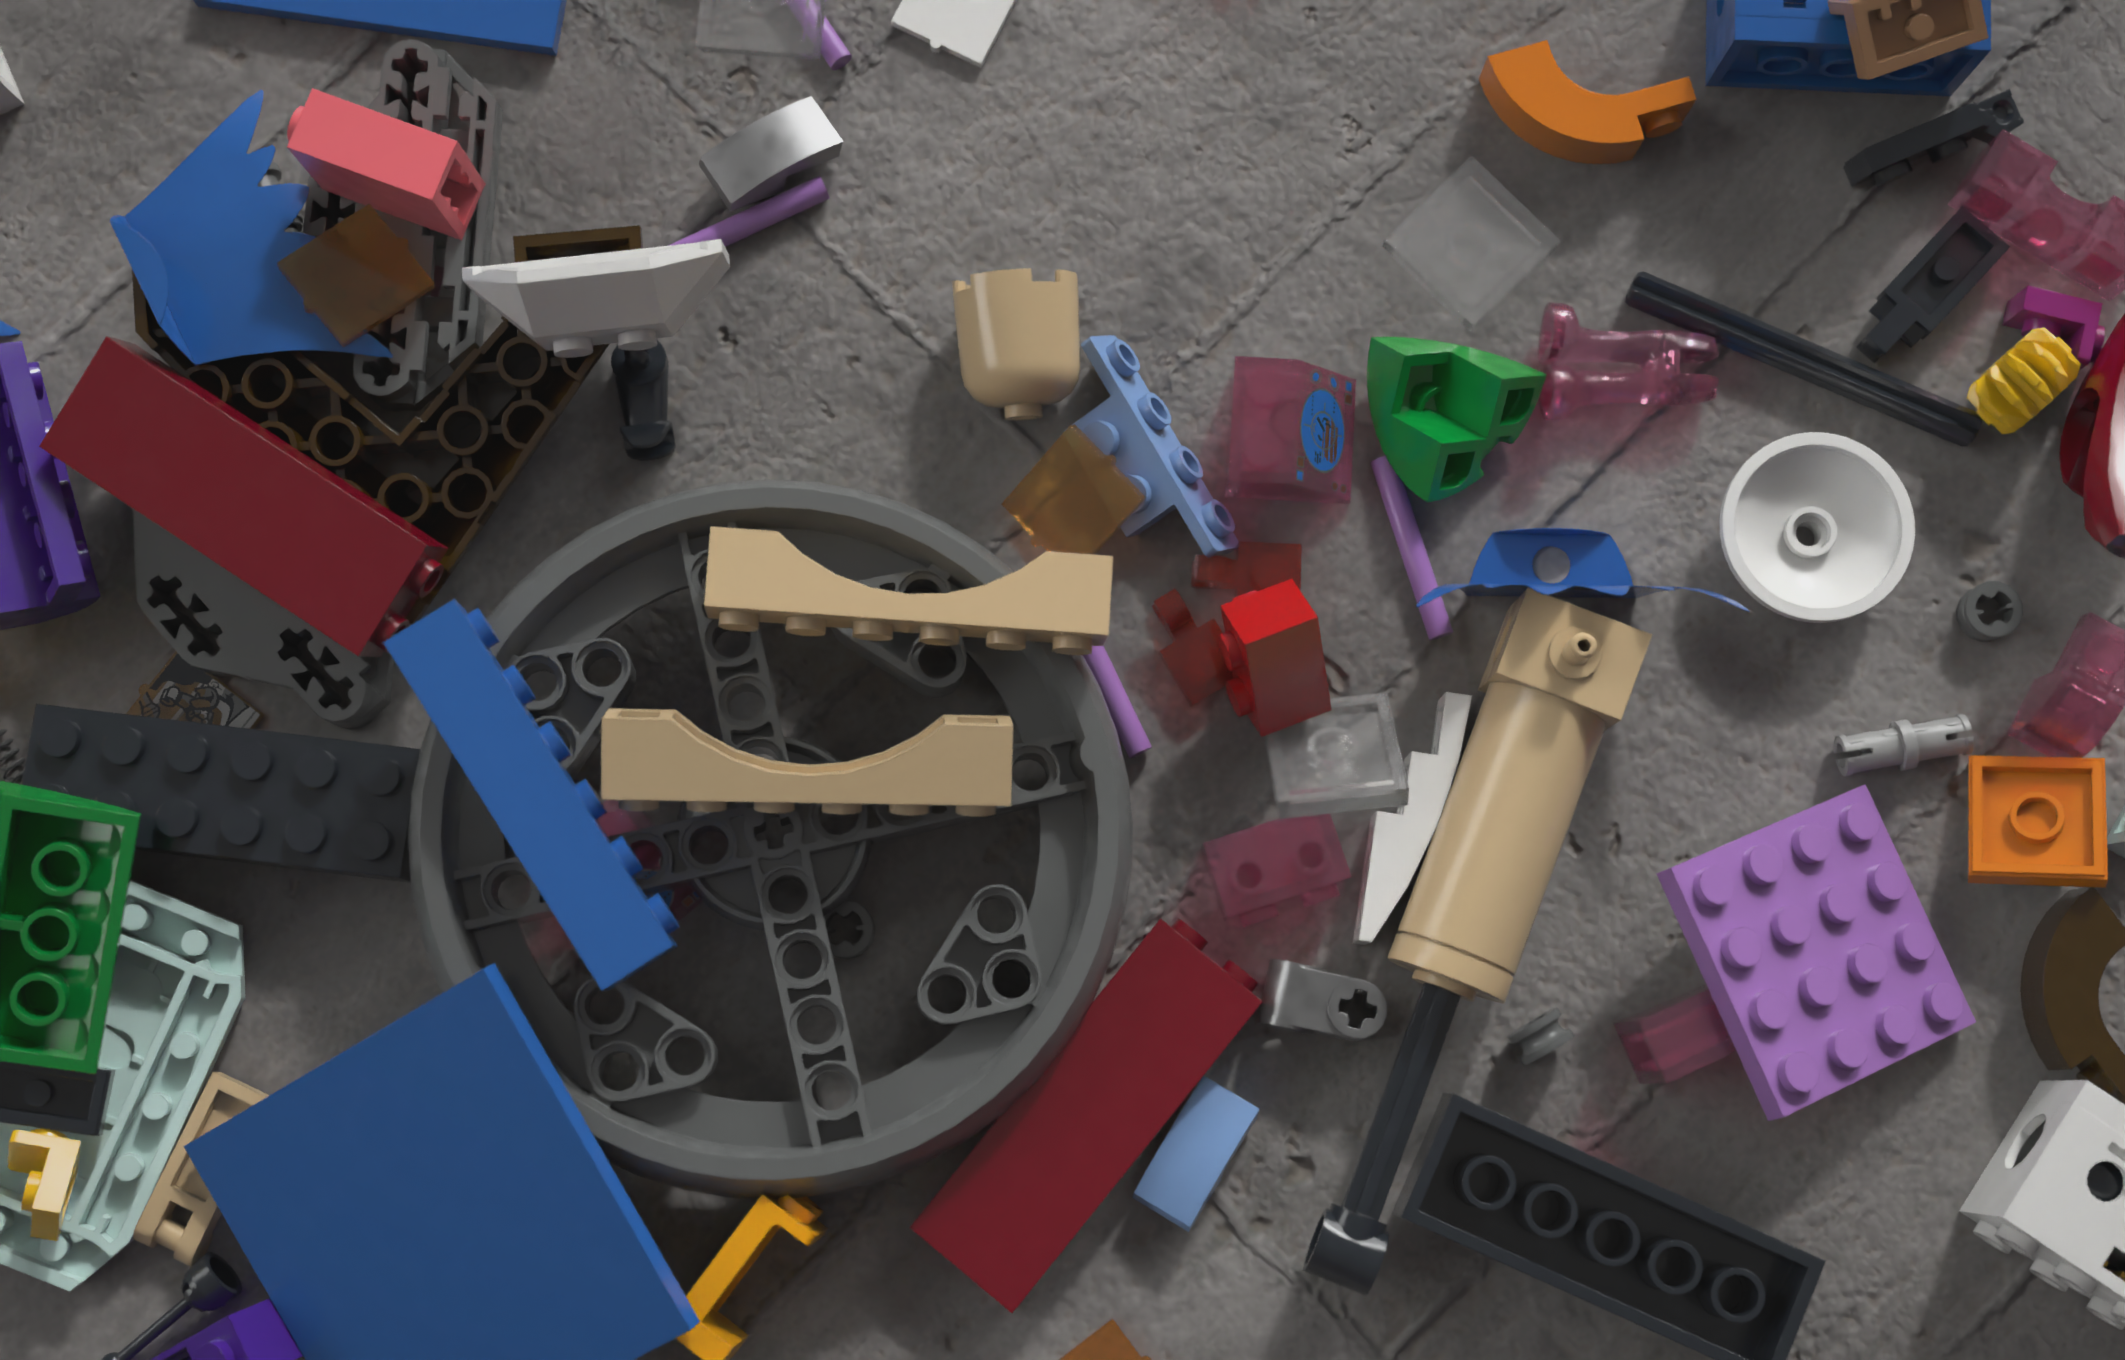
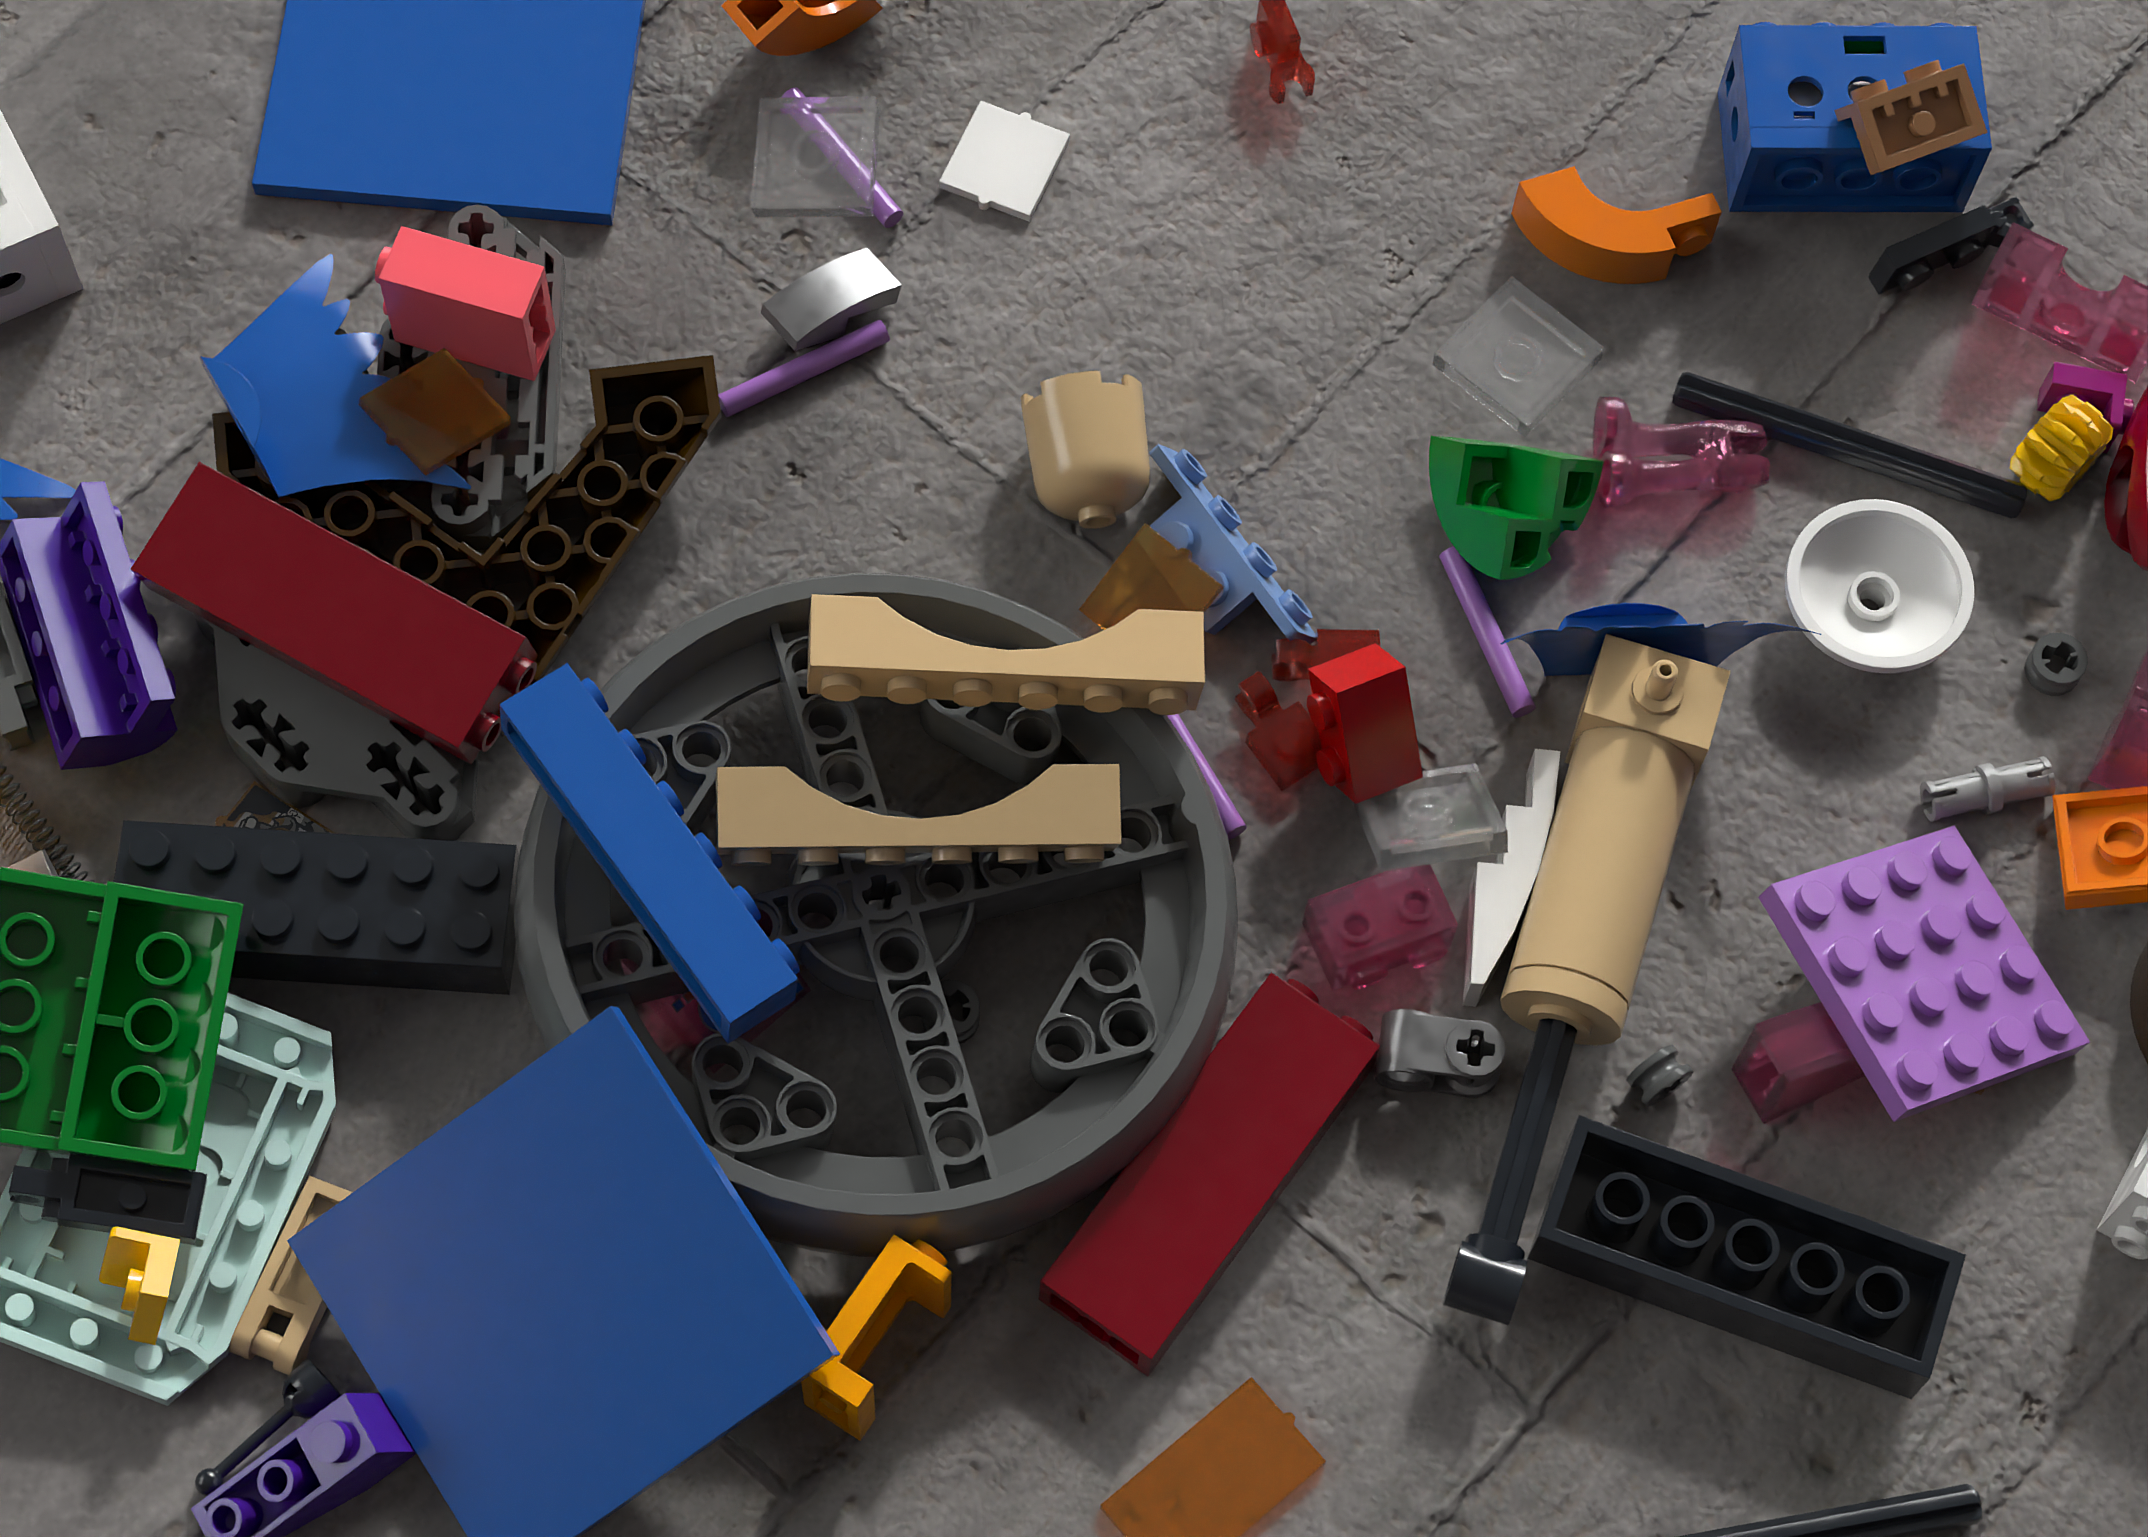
camera: 10 degrees left, 15 degrees down
(602, 296) = (680, 410): white wedge -> none
(643, 397) = (715, 518): black piece -> none
(1195, 1153) = (1323, 1205): medium blue slope -> none
(1289, 431) = (1356, 527): clear pink slope -> none
(1932, 283) = (1964, 372): black hinge -> none

